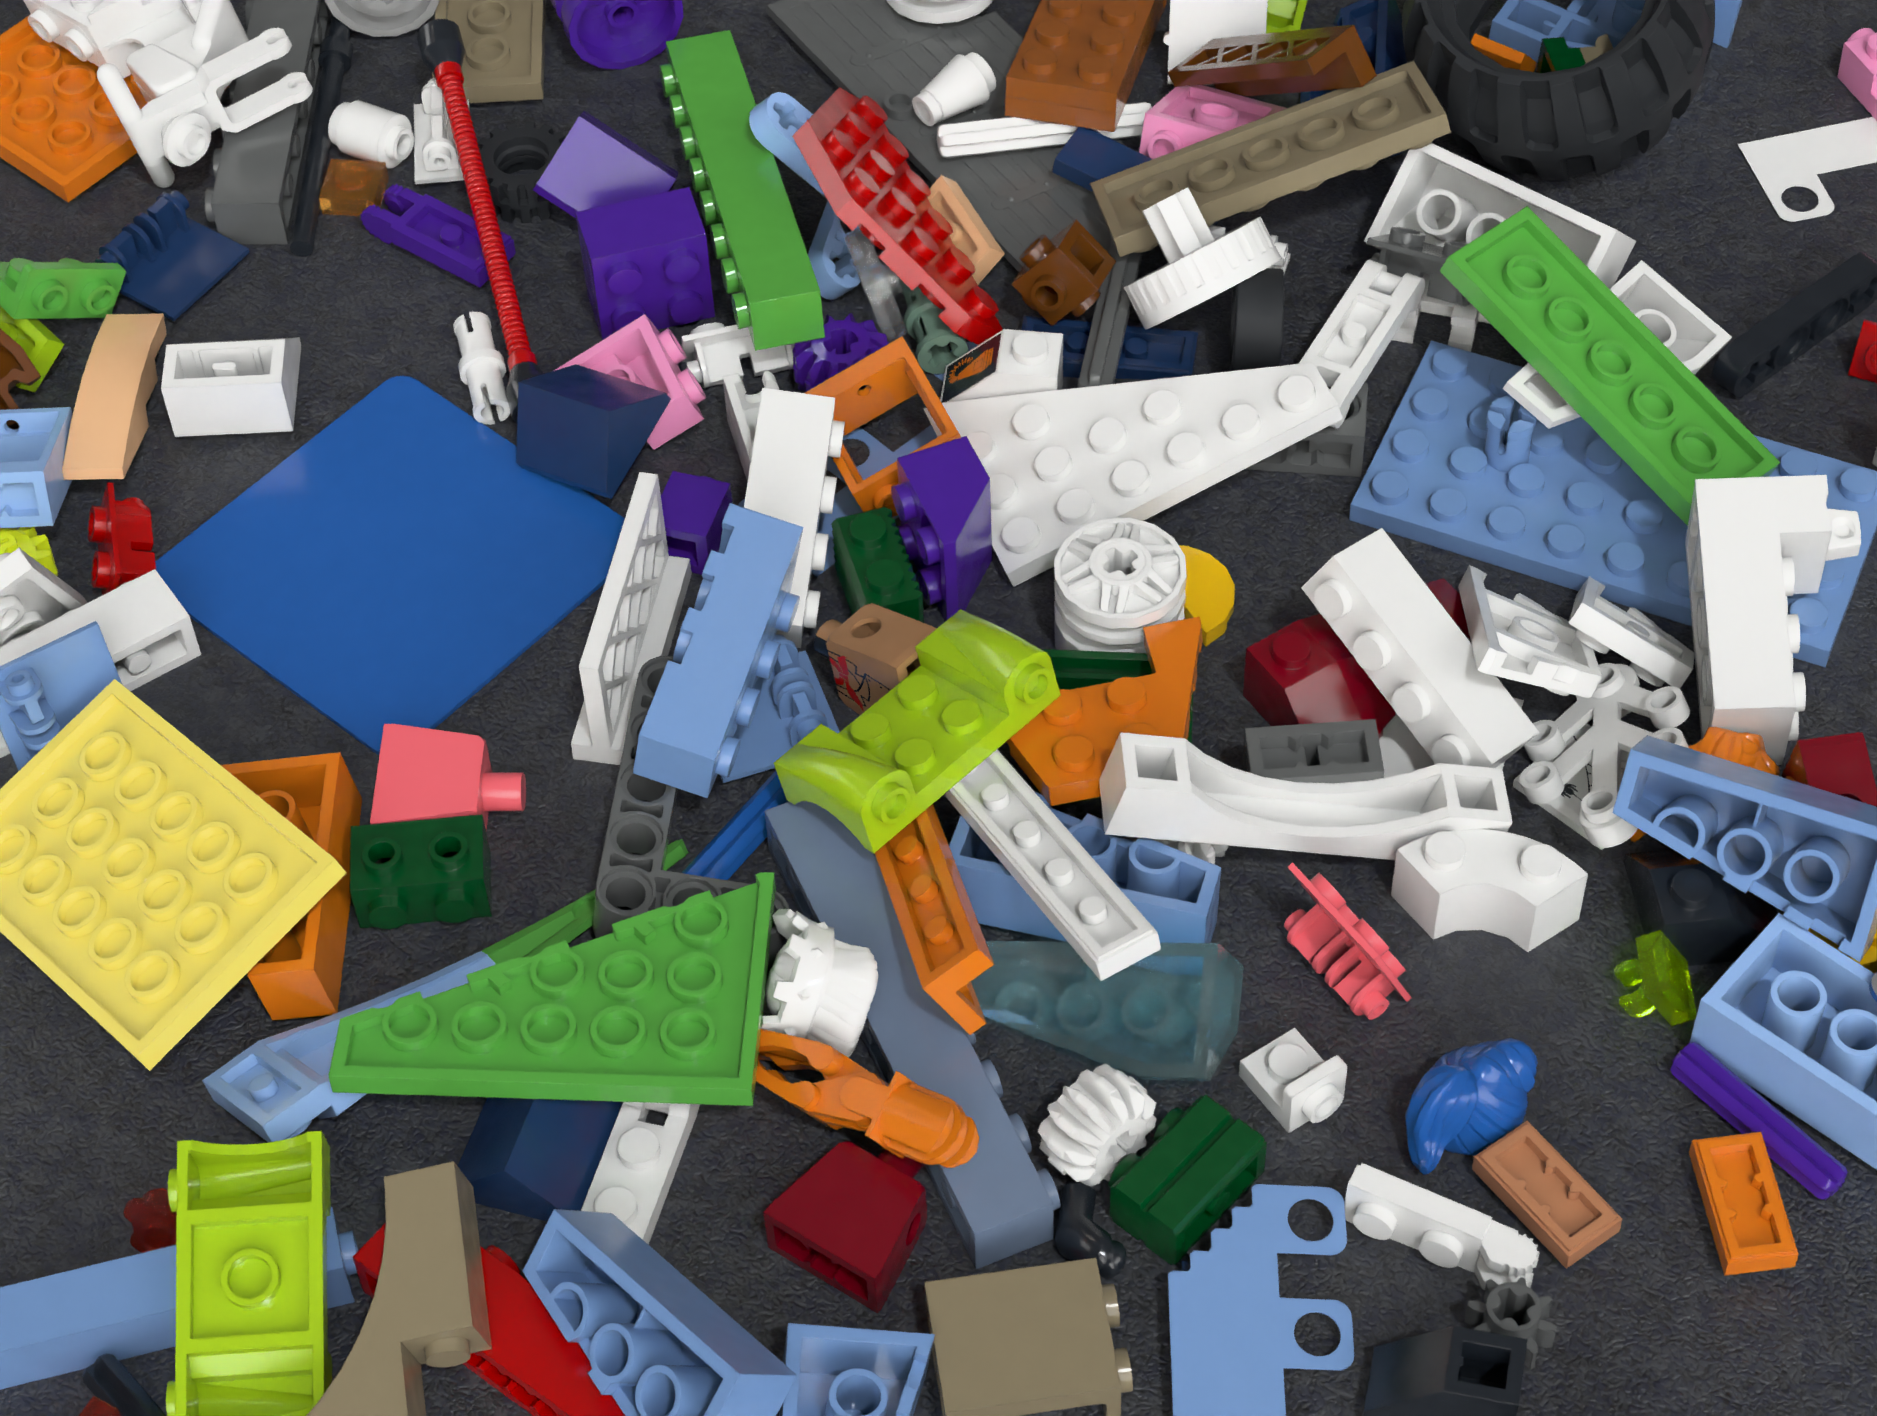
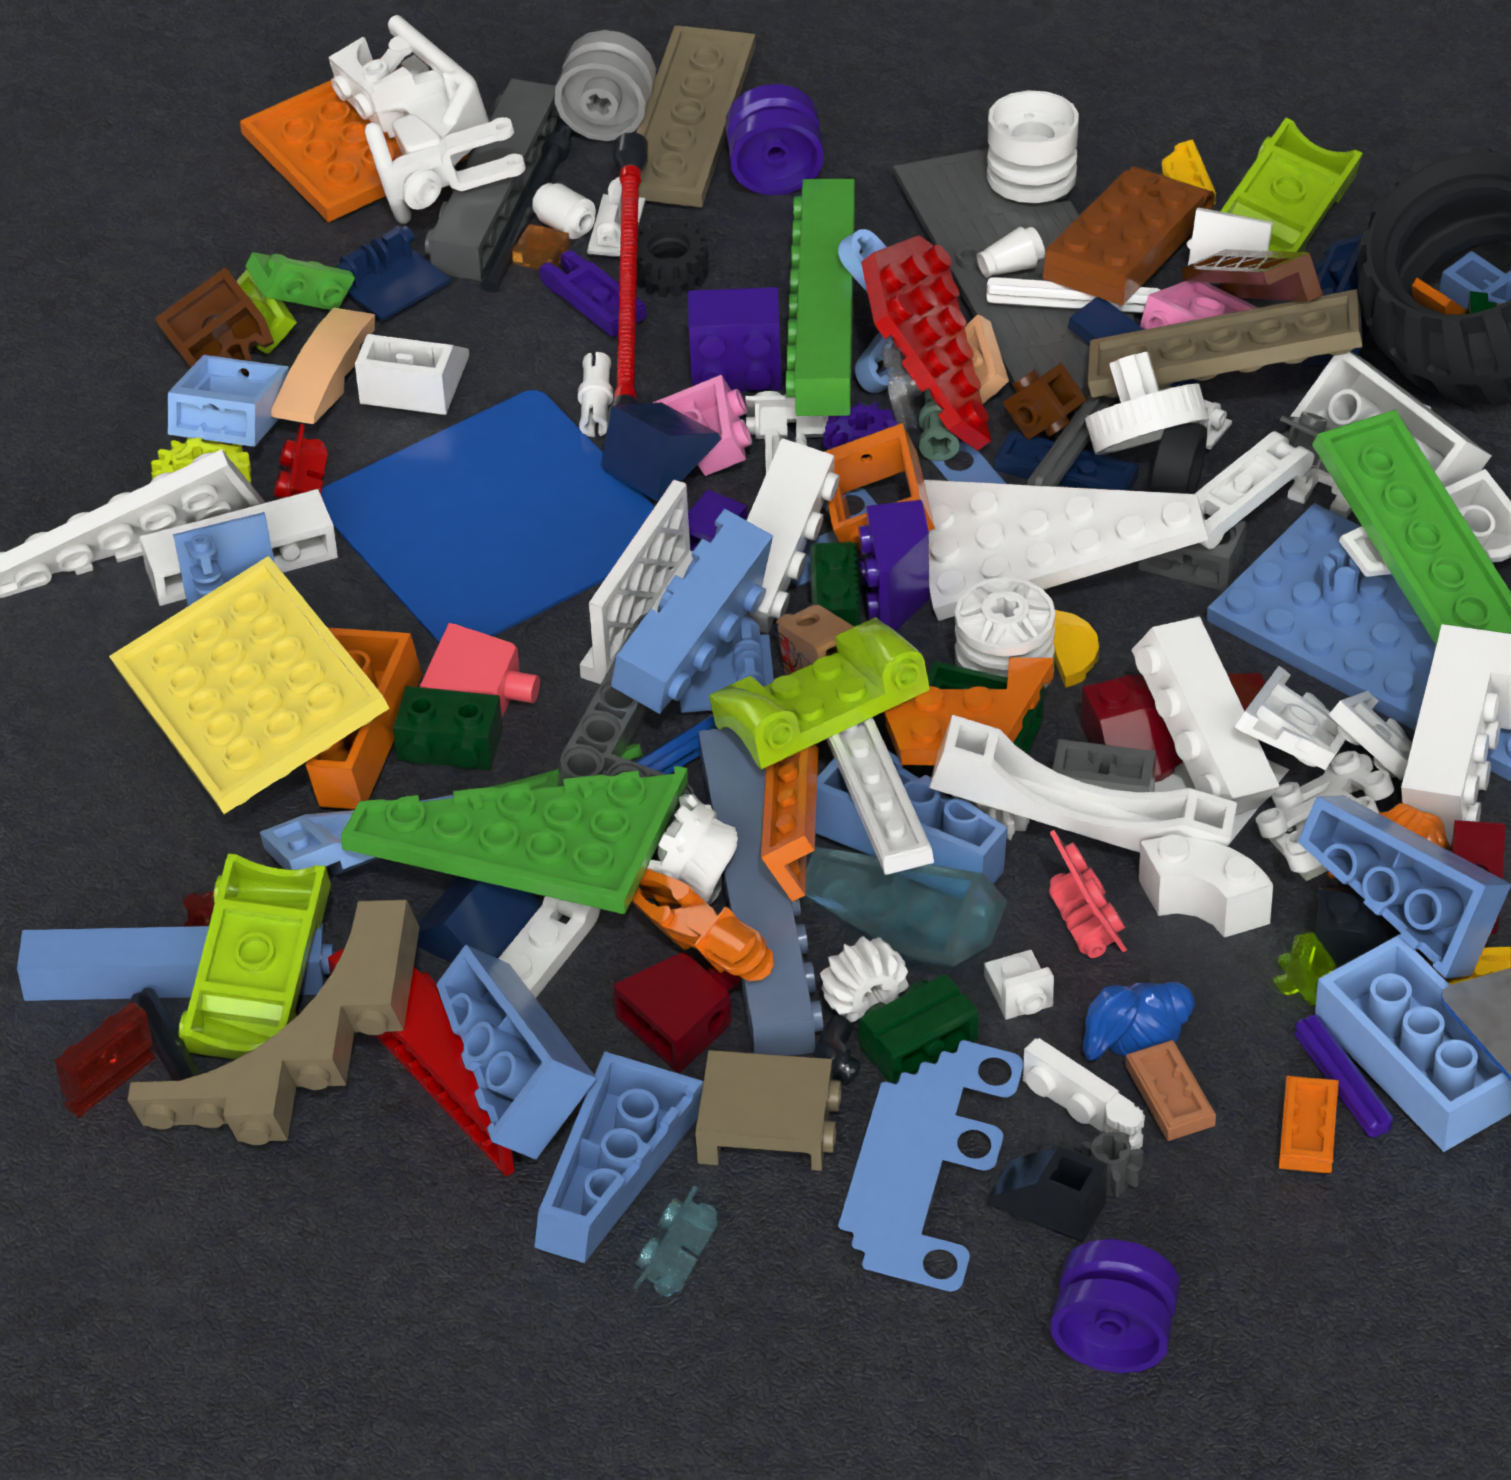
camera: 15 degrees right, 5 degrees down
(601, 169) = (724, 261): slope -> none
(1006, 365) = (984, 461): white slope -> none

